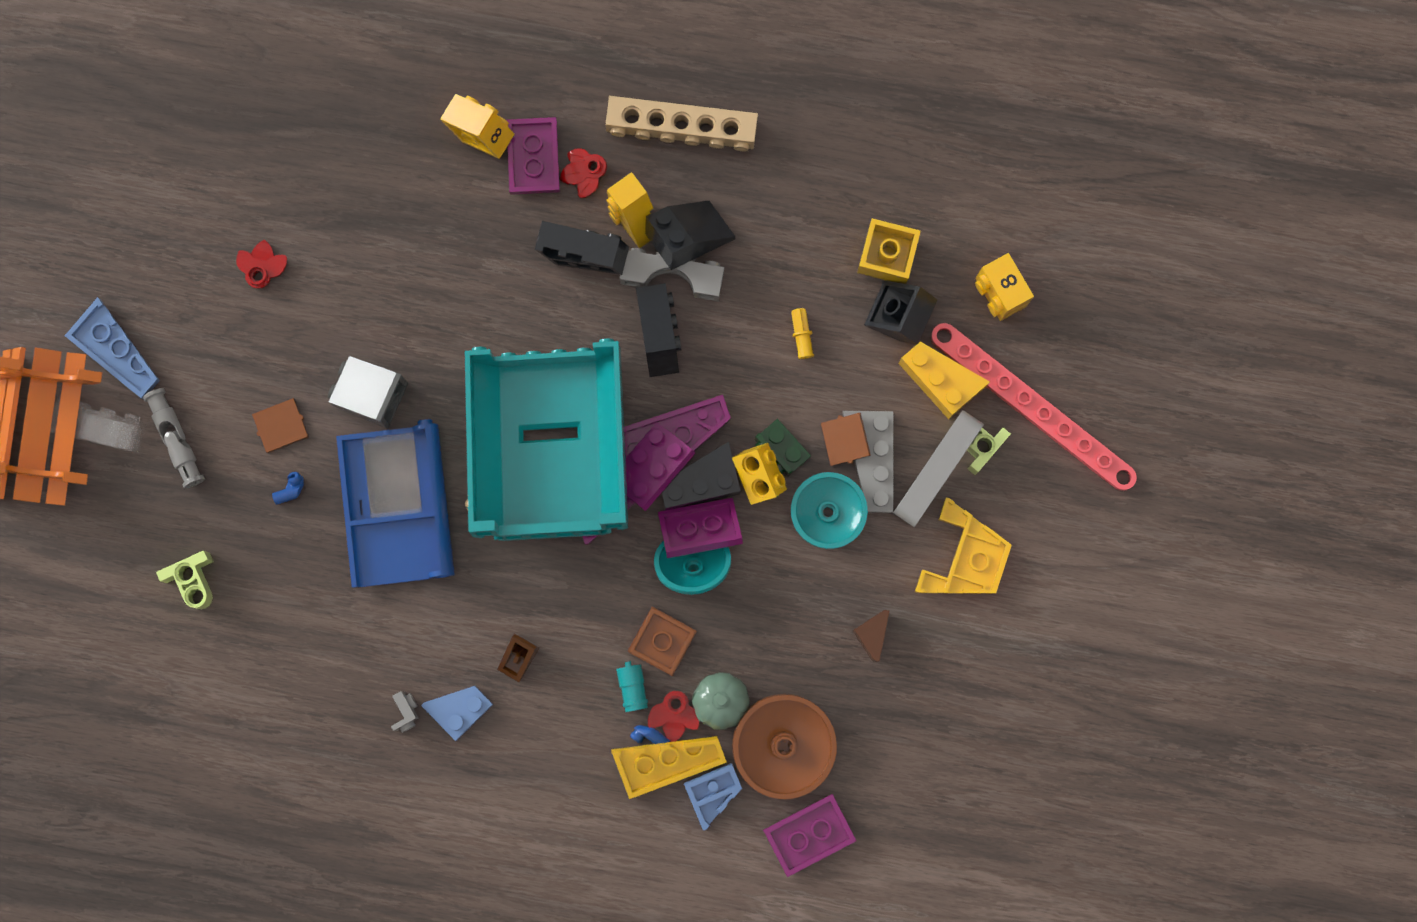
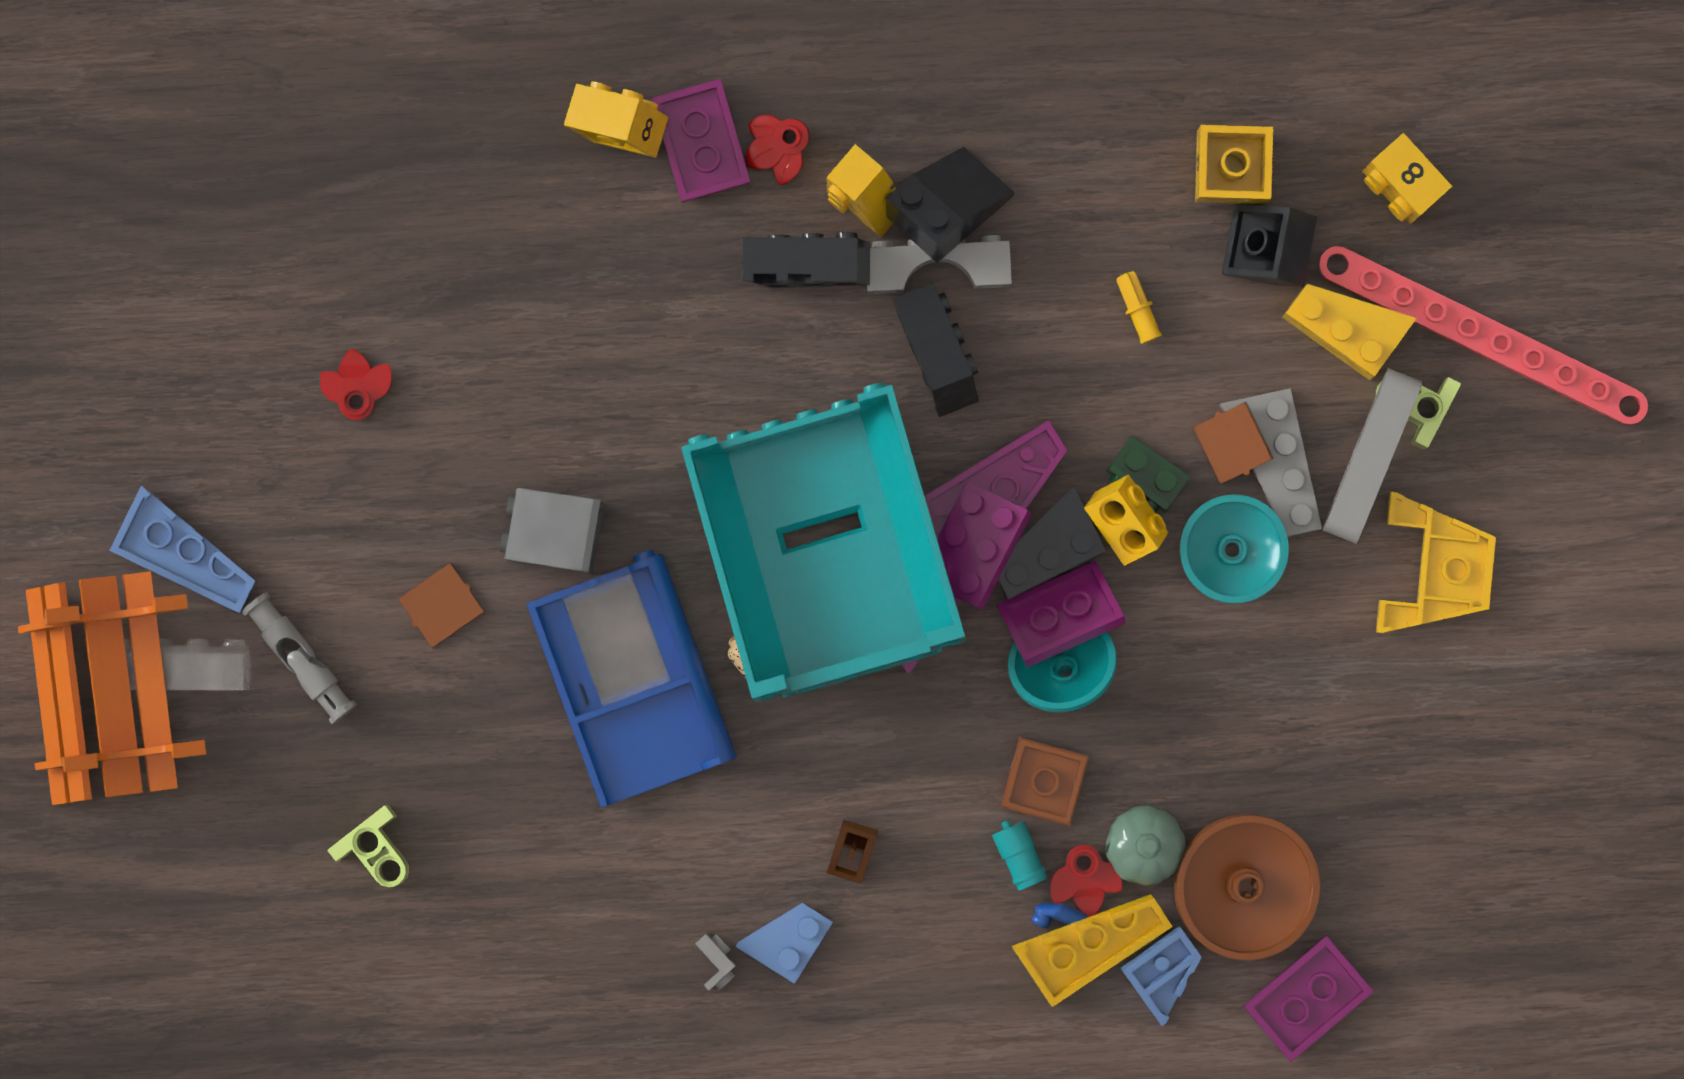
camera: 15 degrees left, 5 degrees up
(292, 490) = (482, 691): blue arm -> none
(671, 113) = (988, 25): tan brick -> none
(872, 634) = (1332, 705): reddish brown slope -> none

